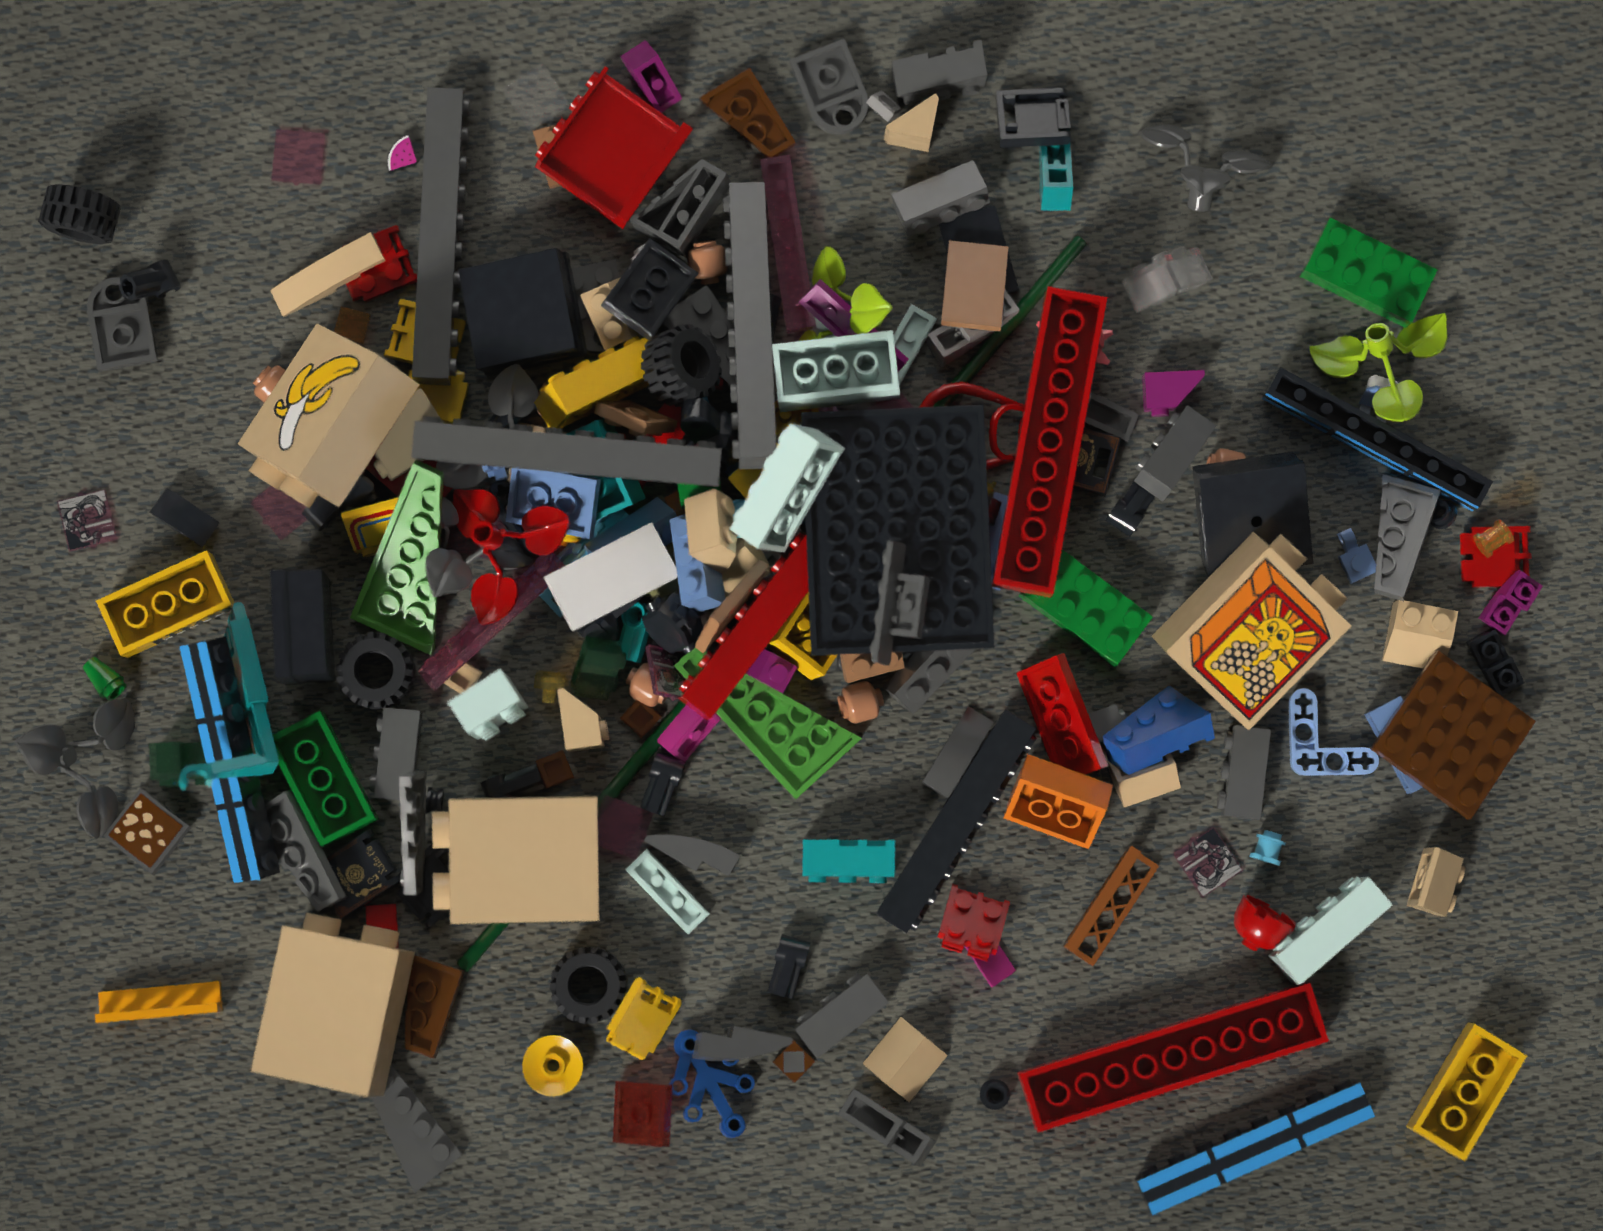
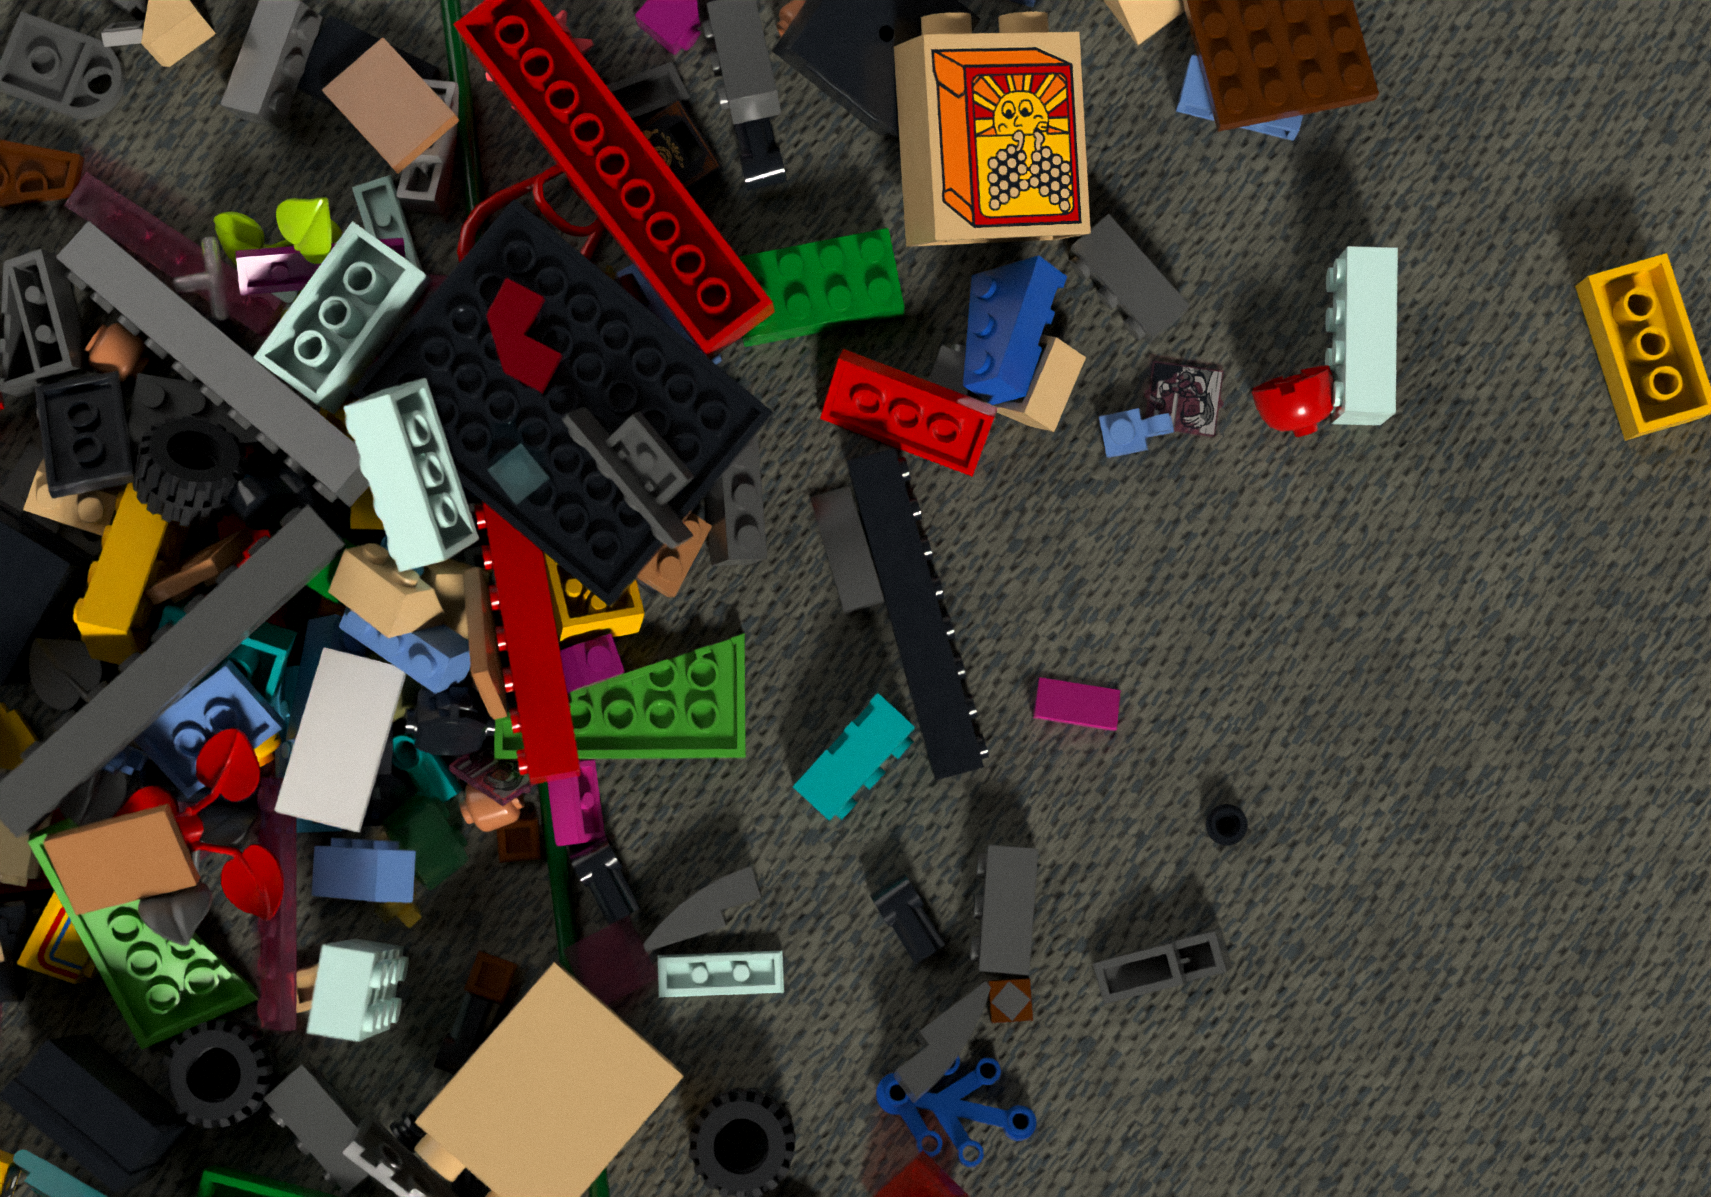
camera: 40 degrees left, 0 degrees up
(447, 521) = (121, 859): none -> medium nougat tile
(552, 650) = (363, 871): none -> medium blue brick
(580, 724) = (467, 910): tan slope -> none
(642, 1019) = (827, 1120): yellow plate -> none
(792, 277) = (210, 279): none -> clear piece
(838, 542) = (518, 474): none -> clear light blue plate
(860, 702) = (706, 602): nougat head -> none
(904, 1059) = (1109, 885): tan slope -> none
(914, 464) = (509, 322): none -> dark red tile
(973, 923) = (1033, 690): red plate -> none
(1058, 801) = (988, 491): orange brick -> none
(1102, 898) = (1127, 539): dark orange fence -> none
(1162, 848) = (1127, 432): none -> medium blue plate
(1172, 1056) = (1350, 610): red brick -> none
(1254, 1147) = (1513, 610): brick -> none
(1268, 847) = (1224, 324): medium azure brick -> none
(1311, 746) = (1160, 191): light blue beam -> none
(1436, 882) = (1408, 188): tan slope -> none

